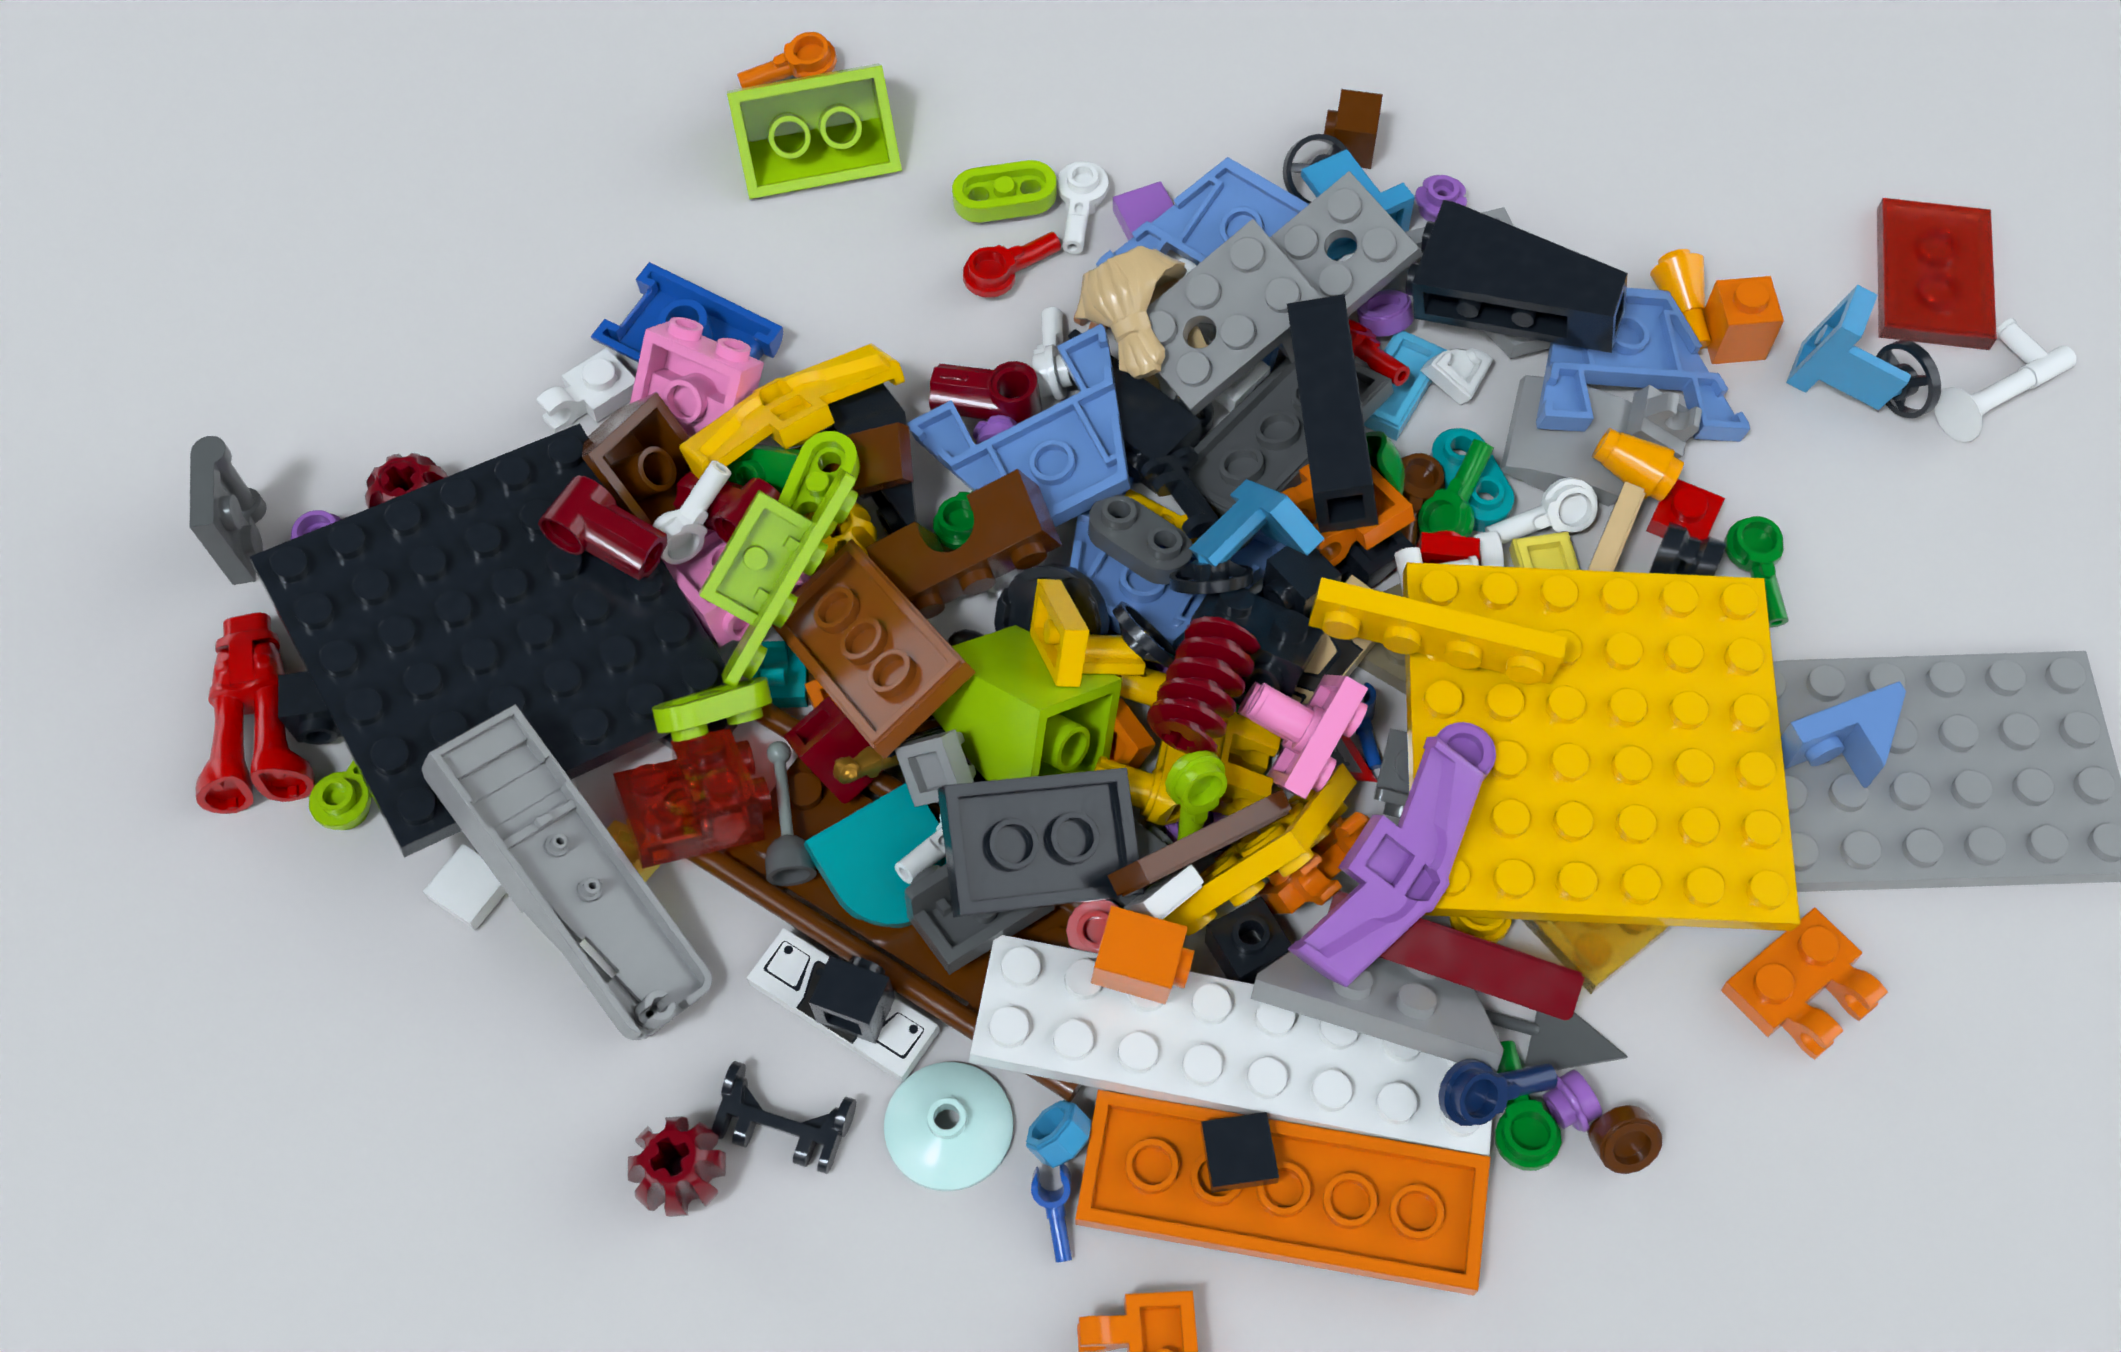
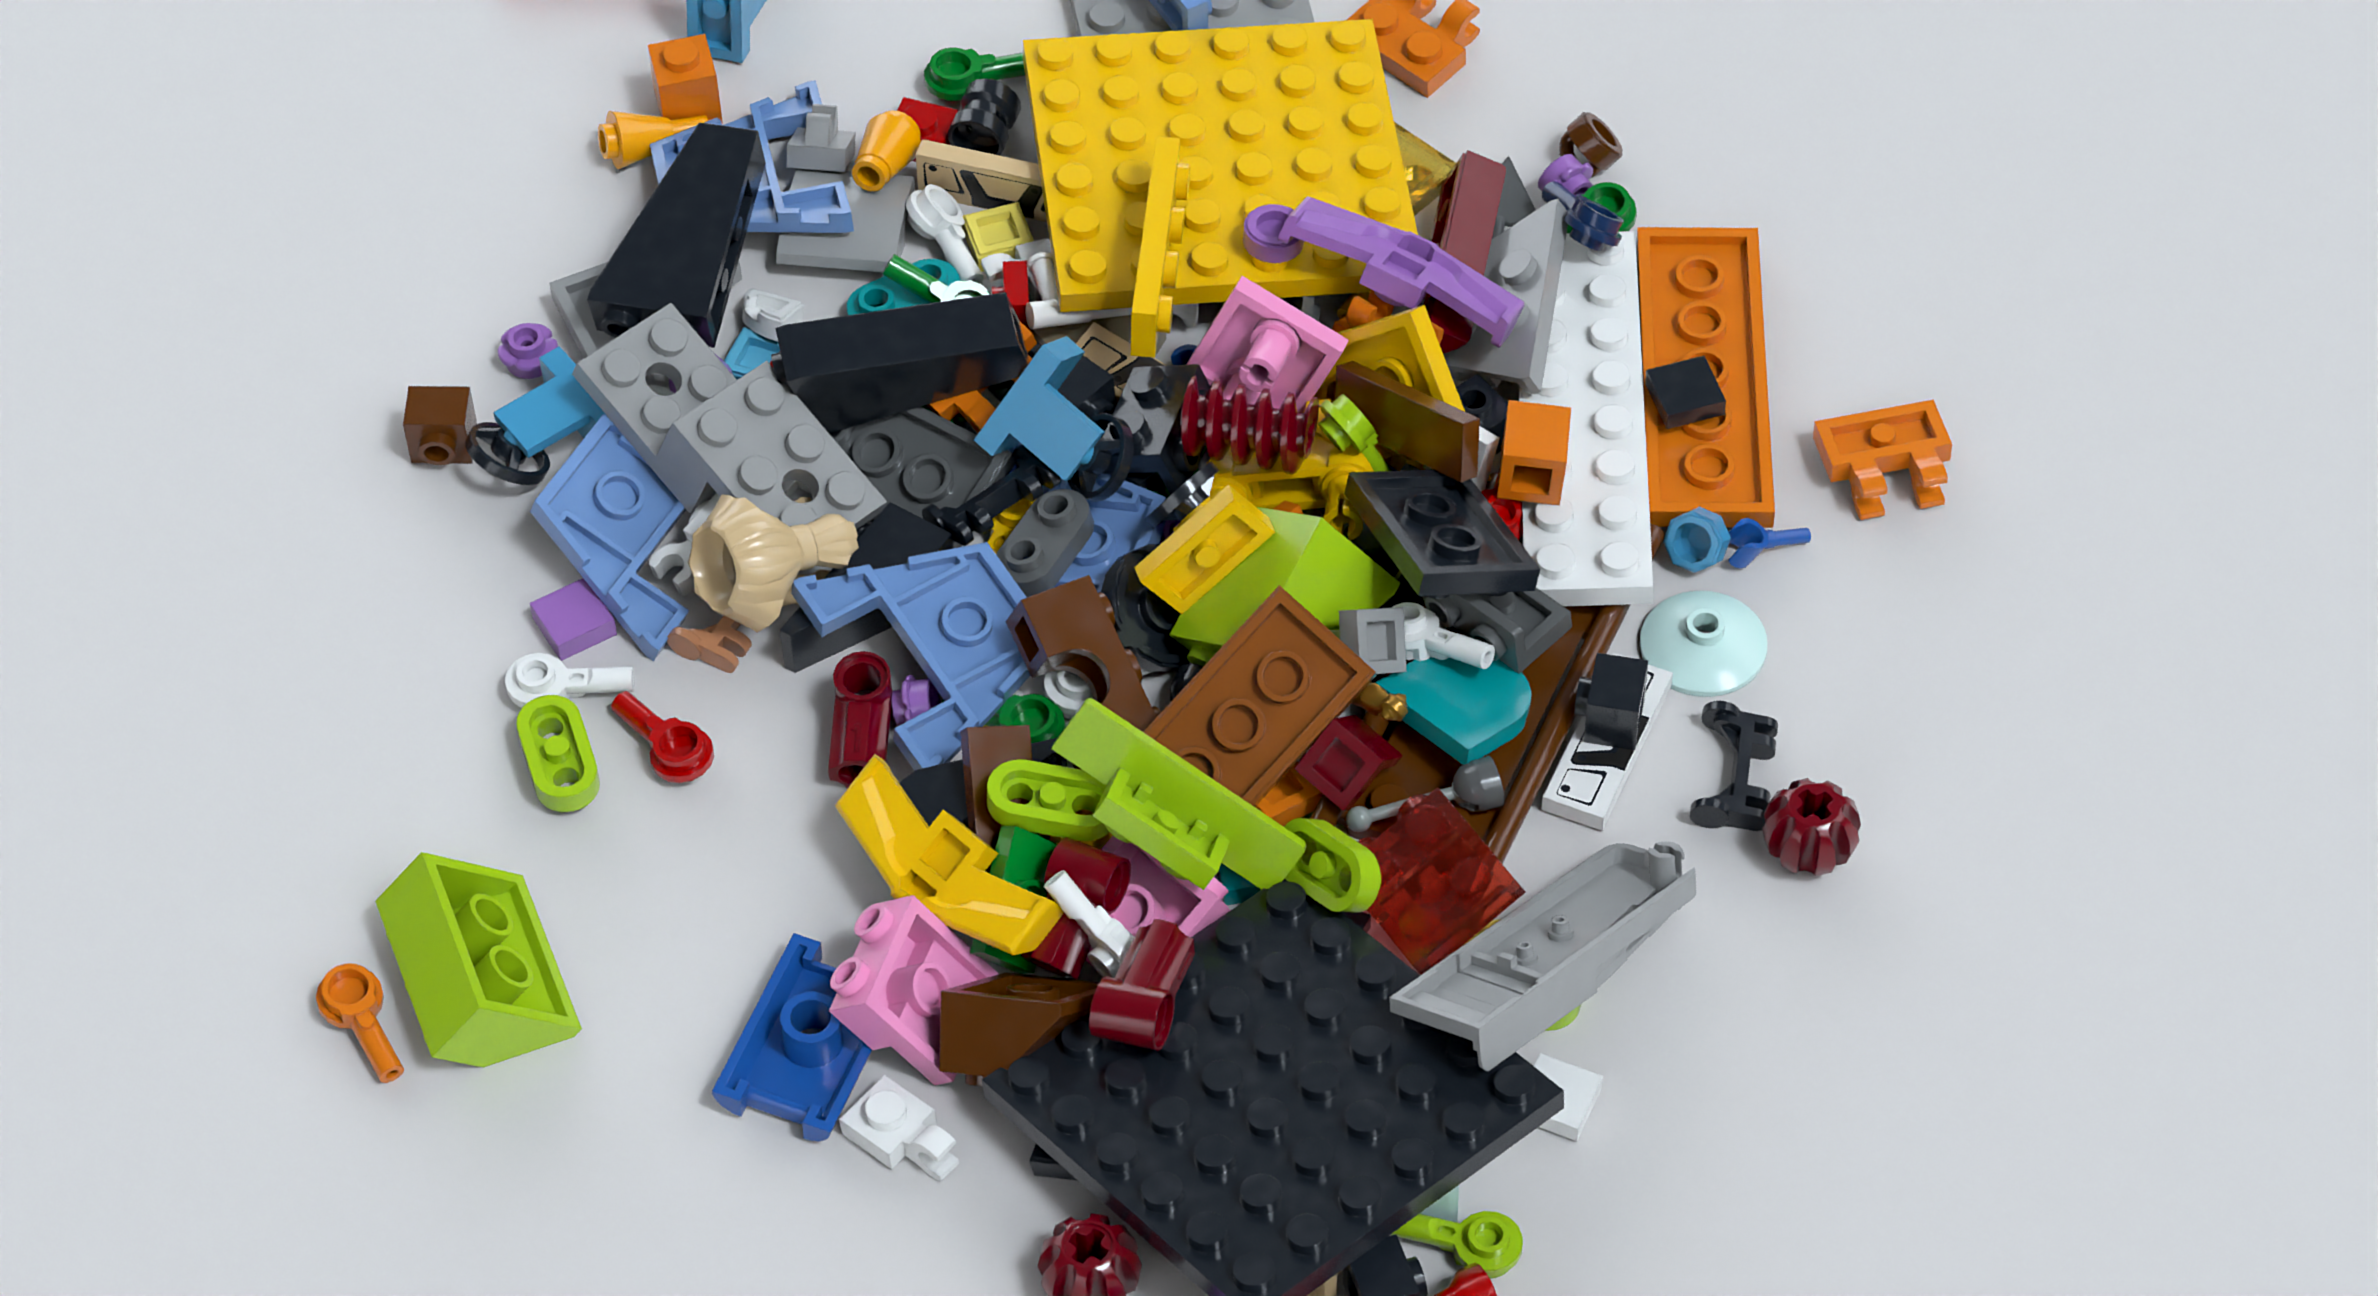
camera: 100 degrees left, 10 degrees down
(1046, 360) = (806, 674): white plate -> none

